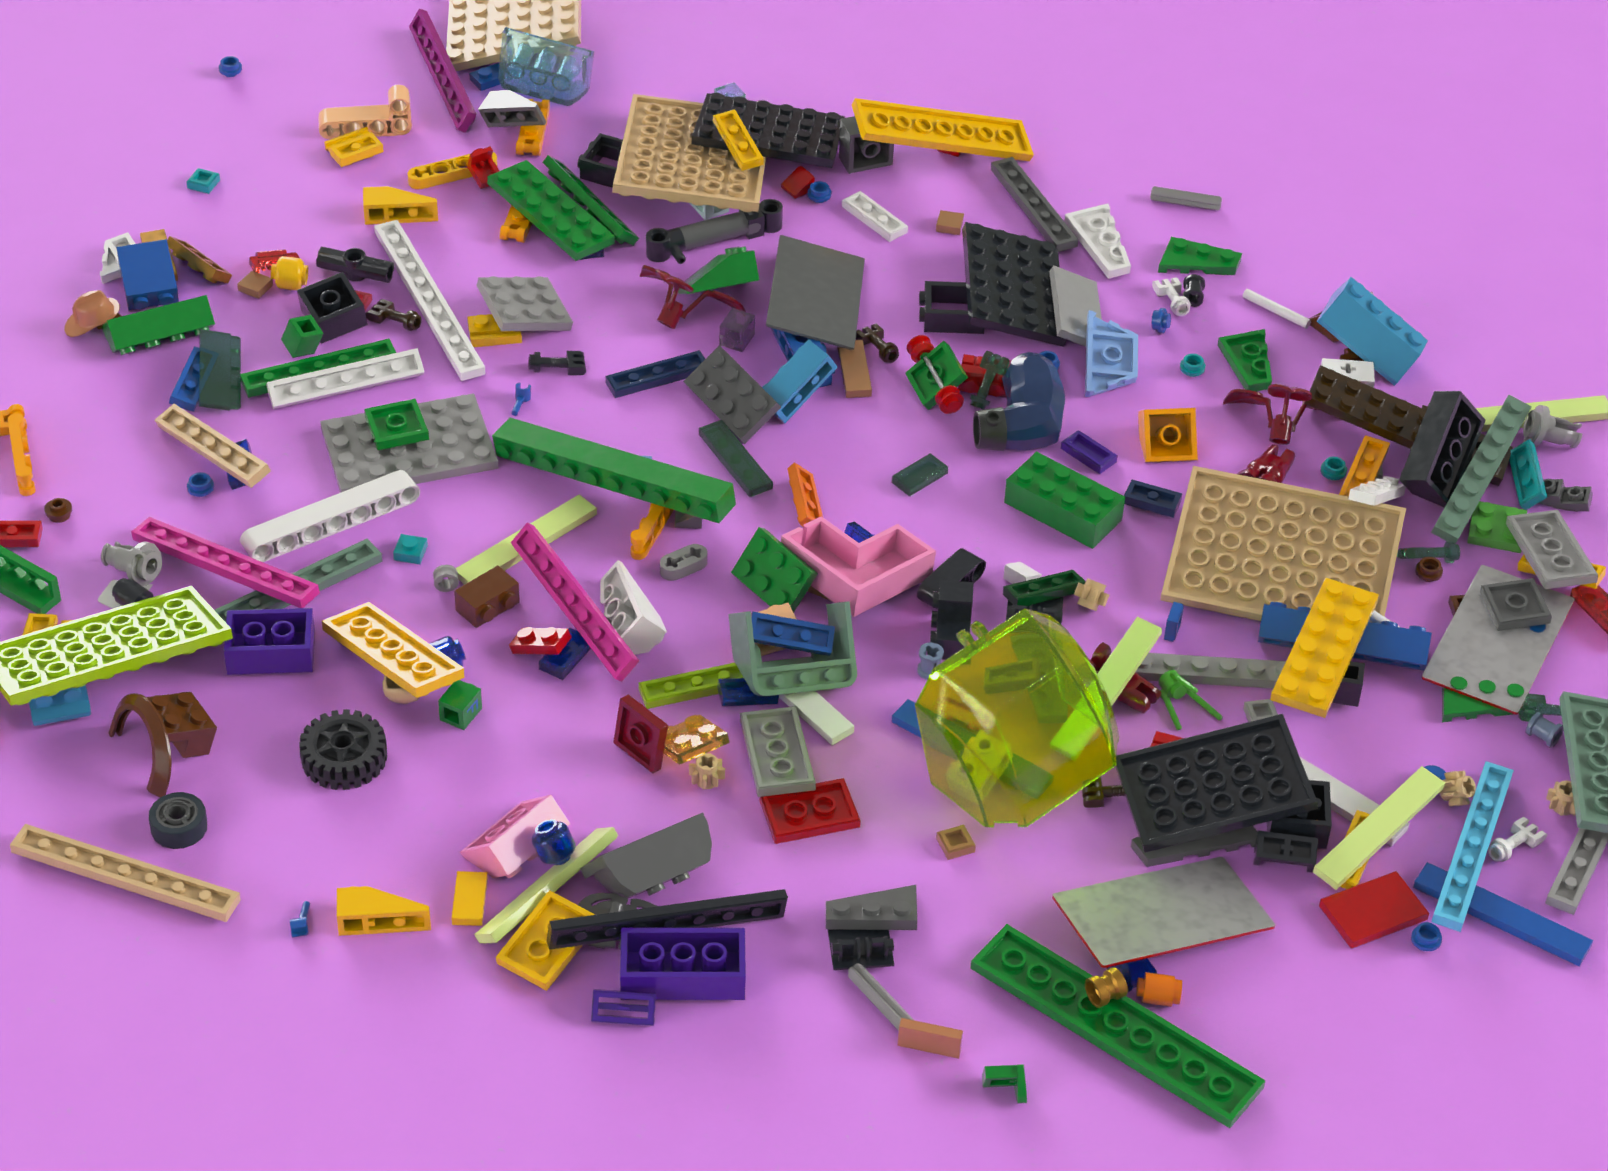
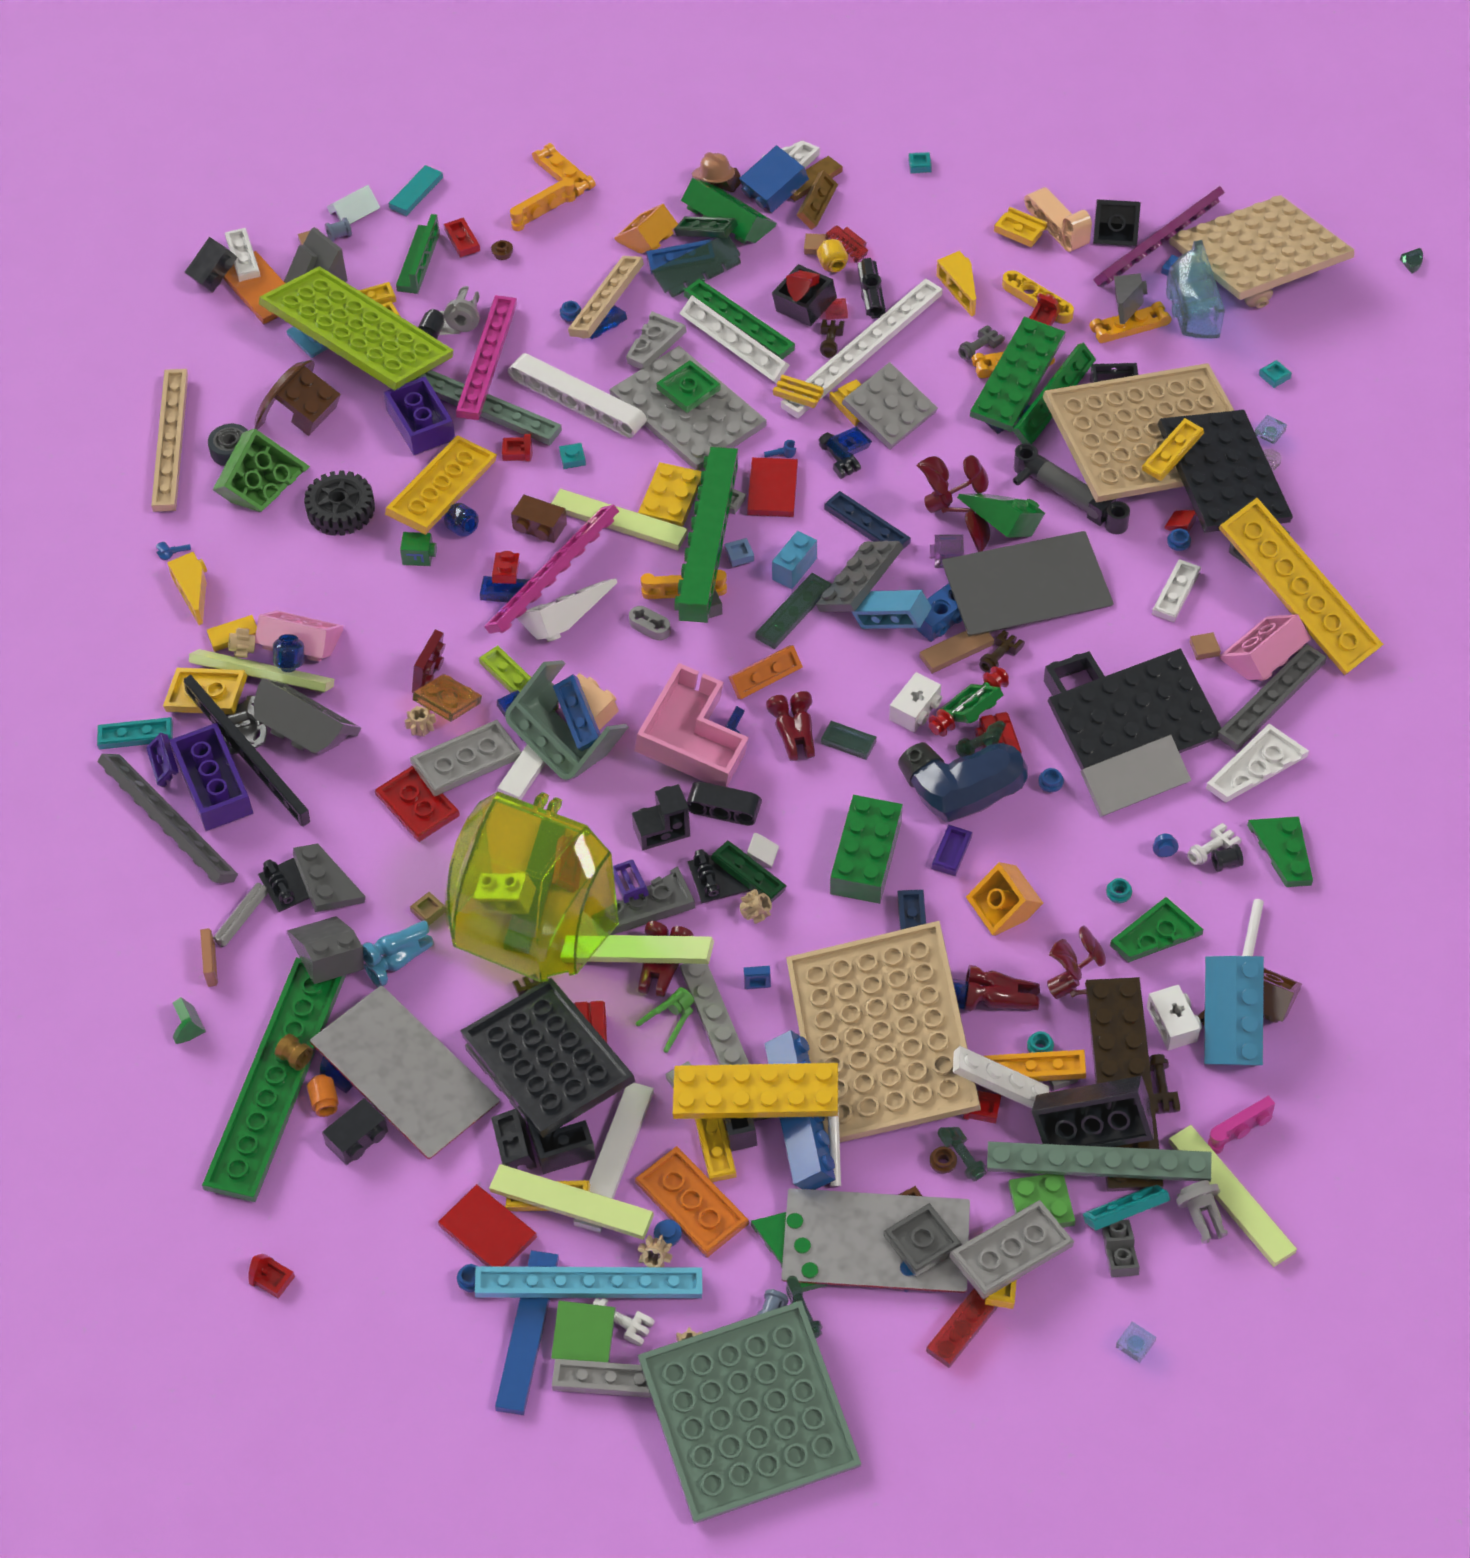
camera: 70 degrees right, 10 degrees up
(131, 389) = (648, 229): none -> light orange slope
(172, 344) = (705, 227): none -> dark green tile
(230, 66) = (1070, 114): blue plate -> none
(244, 804) = (257, 471): none -> bright green wedge
(296, 435) = (655, 339): none -> light grey wing
(302, 336) = (759, 292): green brick -> none
(337, 290) = (800, 283): none -> red tile
(369, 583) = (517, 448): none -> red tile
(403, 73) = (1116, 222): none -> black slope
(449, 584) = (546, 487): light grey bush -> none
(459, 353) = (799, 388): none -> yellow tile
(488, 233) = (985, 337): none -> dark grey hinge
(500, 886) = (241, 643): none -> tan gear
(519, 493) = (671, 493): none -> yellow plate
(554, 346) = (848, 442): none -> clear blue plate
(561, 1028) = (132, 733): none -> teal tile
(566, 416) = (772, 487): none -> red tile
(662, 71) = (1275, 373): none -> teal tile
(678, 431) = (794, 559): none -> dark azure brick
(697, 1029) = (171, 822): none -> dark grey plate
(773, 571) = (653, 680): green plate -> none
(887, 500) = (794, 729): none -> dark red piece
(907, 412) = (915, 702): none -> white brick
(929, 661) = (616, 821): sand blue bush -> none
(974, 926) = (327, 949): none -> dark grey slope
(976, 186) = (1266, 646): none -> bright pink slope
(1010, 882) = (396, 951): none -> dark azure piece
(1109, 356) = (1083, 820): light blue wing -> none
(1186, 198) = (1370, 811): light grey axle -> none
(1218, 975) = (355, 1132): none -> black brick
(1349, 717) = (715, 1149): none -> yellow tile
(1361, 1099) = (269, 1275): none -> red tile
(1400, 751) = (692, 1201): none -> orange tile
(1471, 380) = (1241, 1124): none -> dark pink plate
(1526, 866) = (583, 1332): none -> bright green tile

